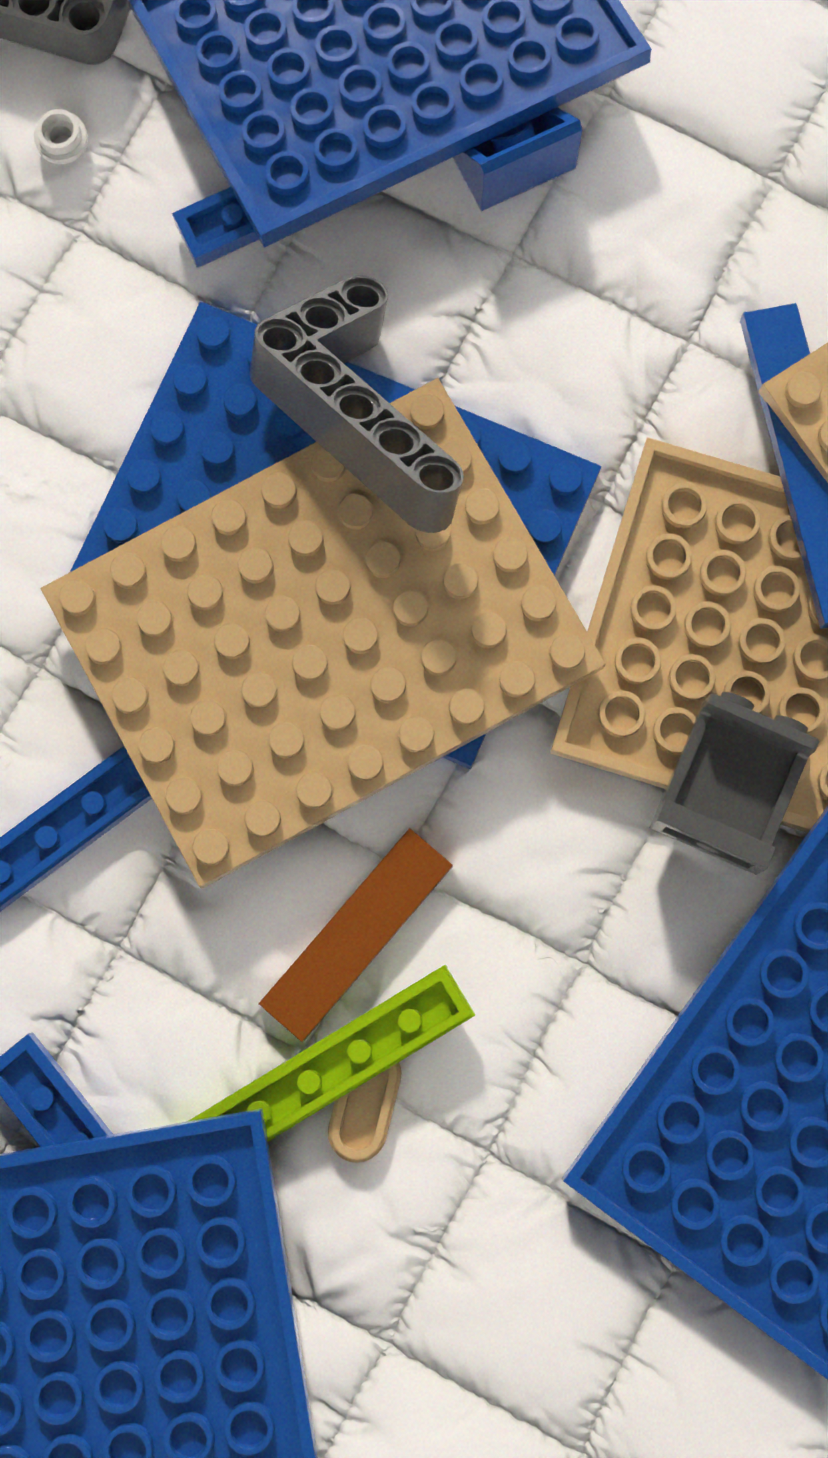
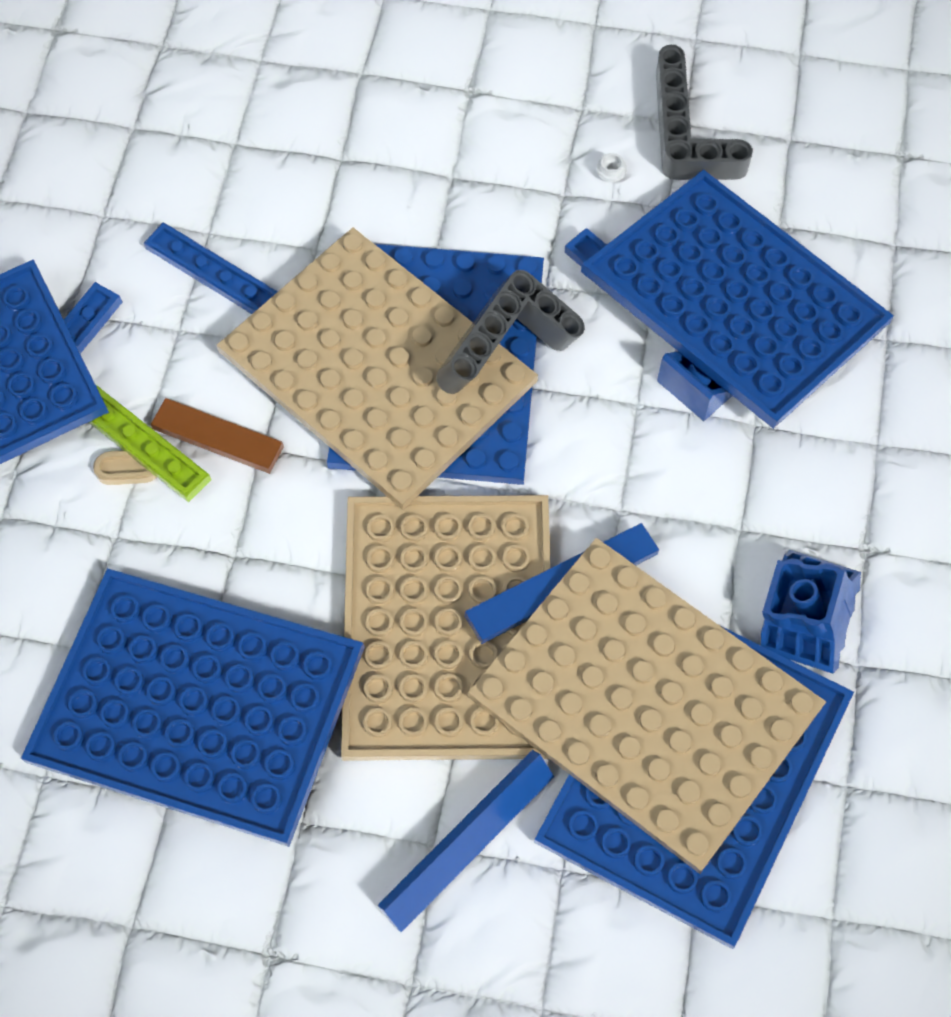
camera: 70 degrees right, 15 degrees down
(734, 781) = (354, 590): dark grey panel -> none

